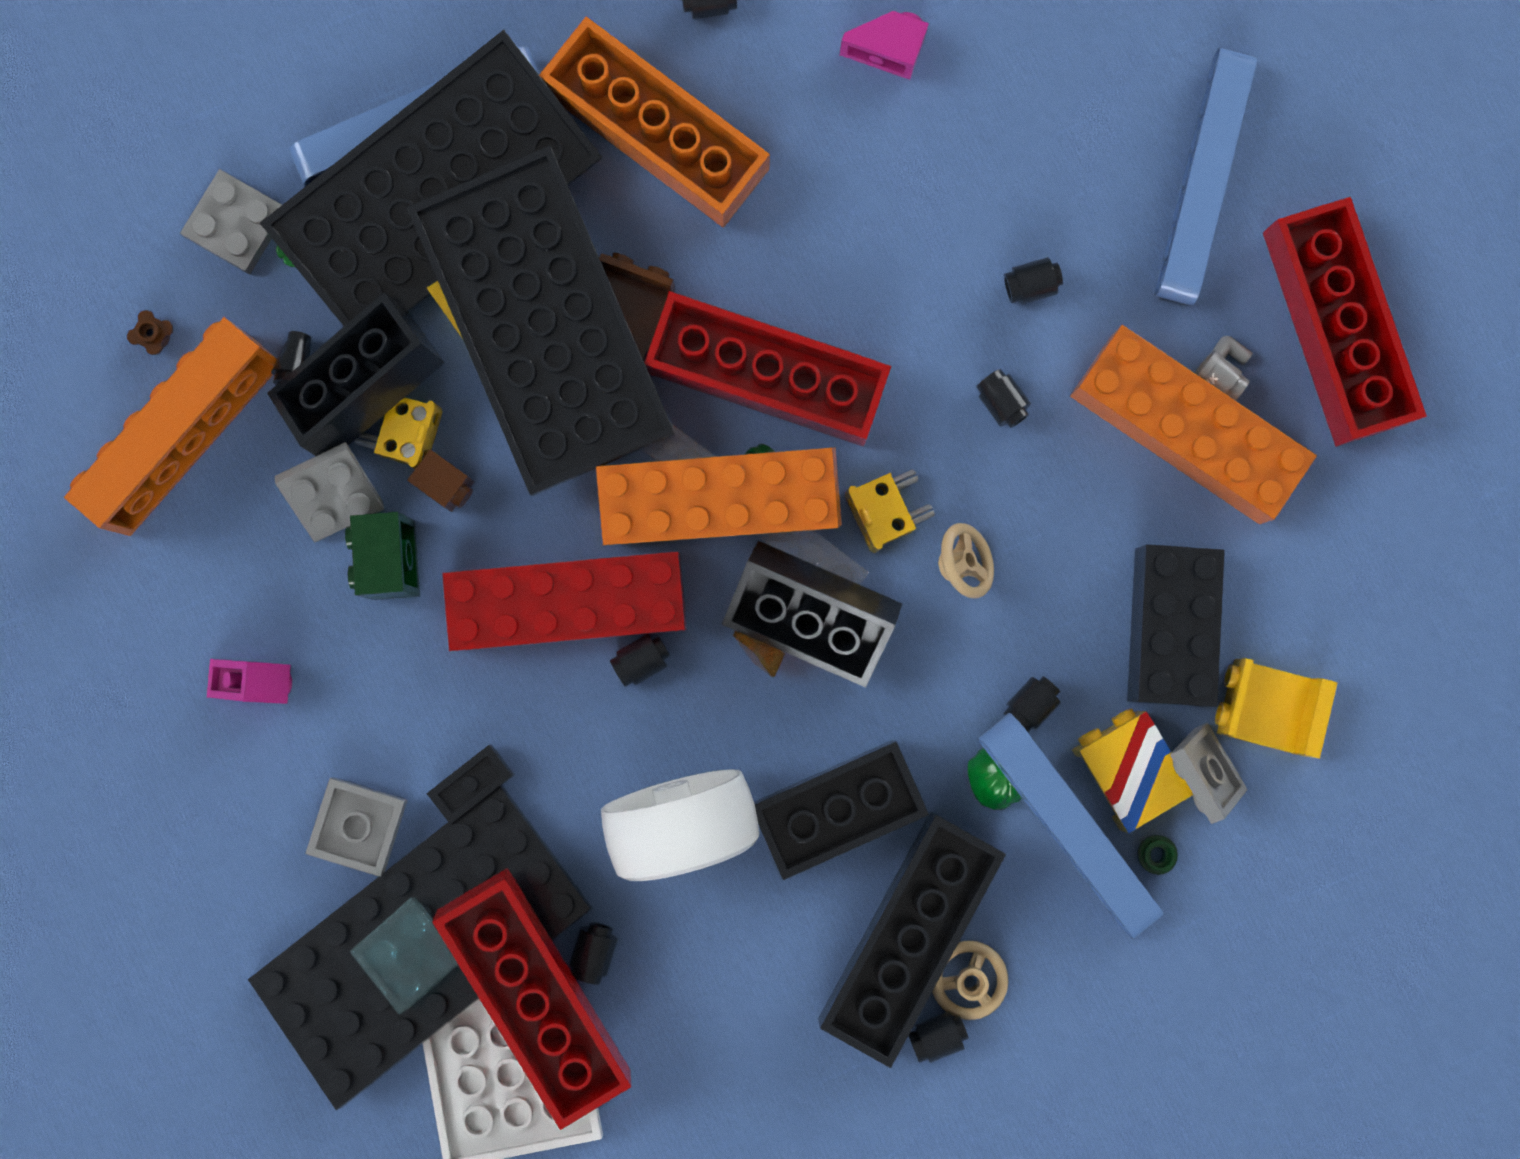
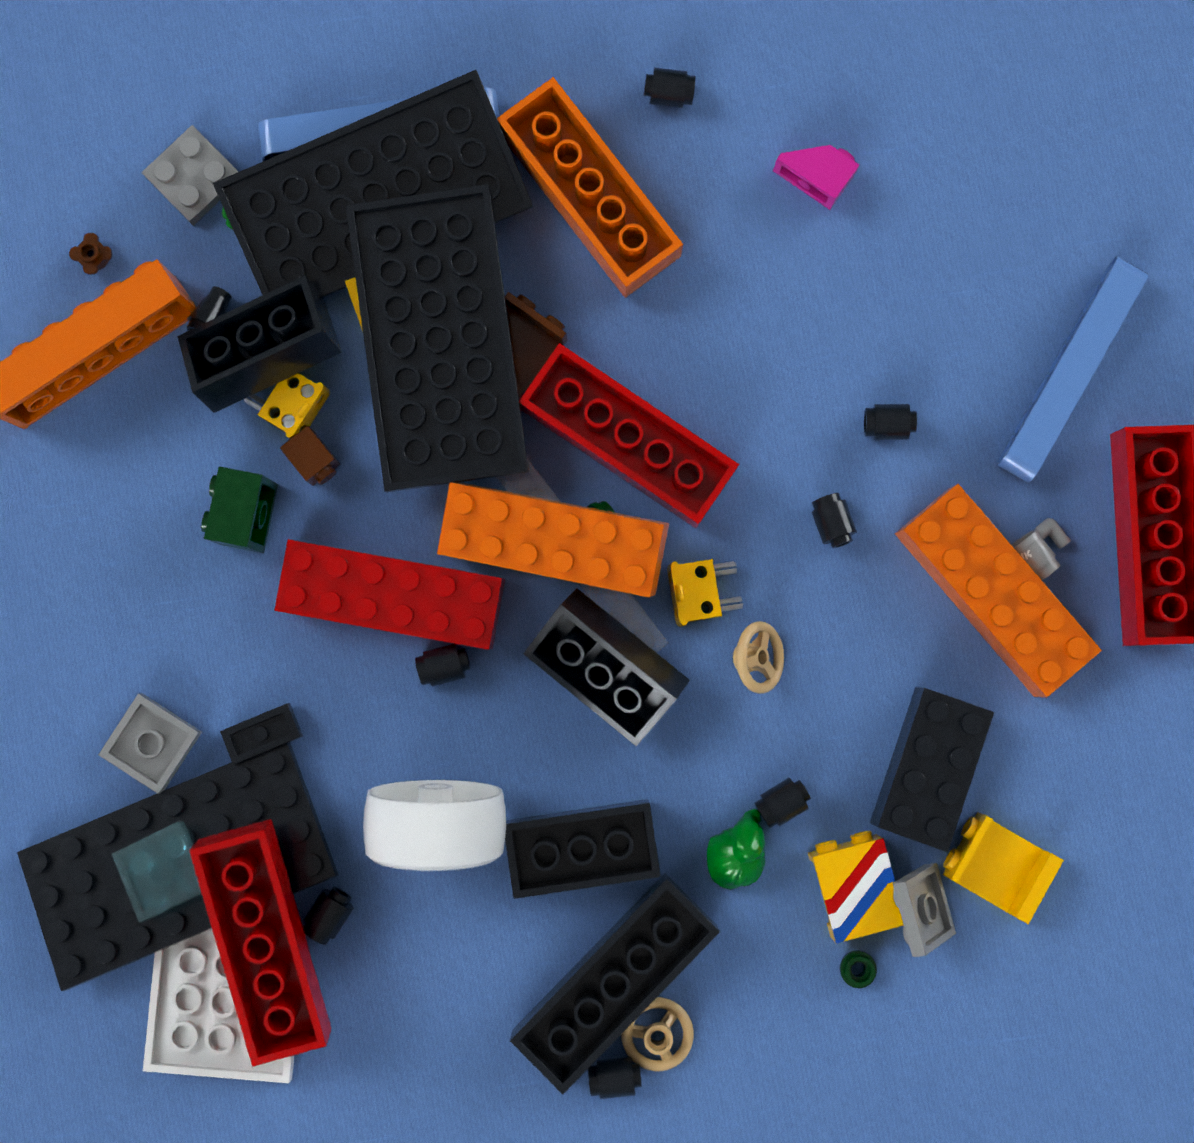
camera: 20 degrees right, 0 degrees up
(249, 681) = (91, 588): dark pink slope -> none
(328, 491) = (208, 439): light grey plate -> none
(761, 654) = (553, 691): clear orange slope -> none
(1070, 825) = (785, 922): medium blue beam -> none

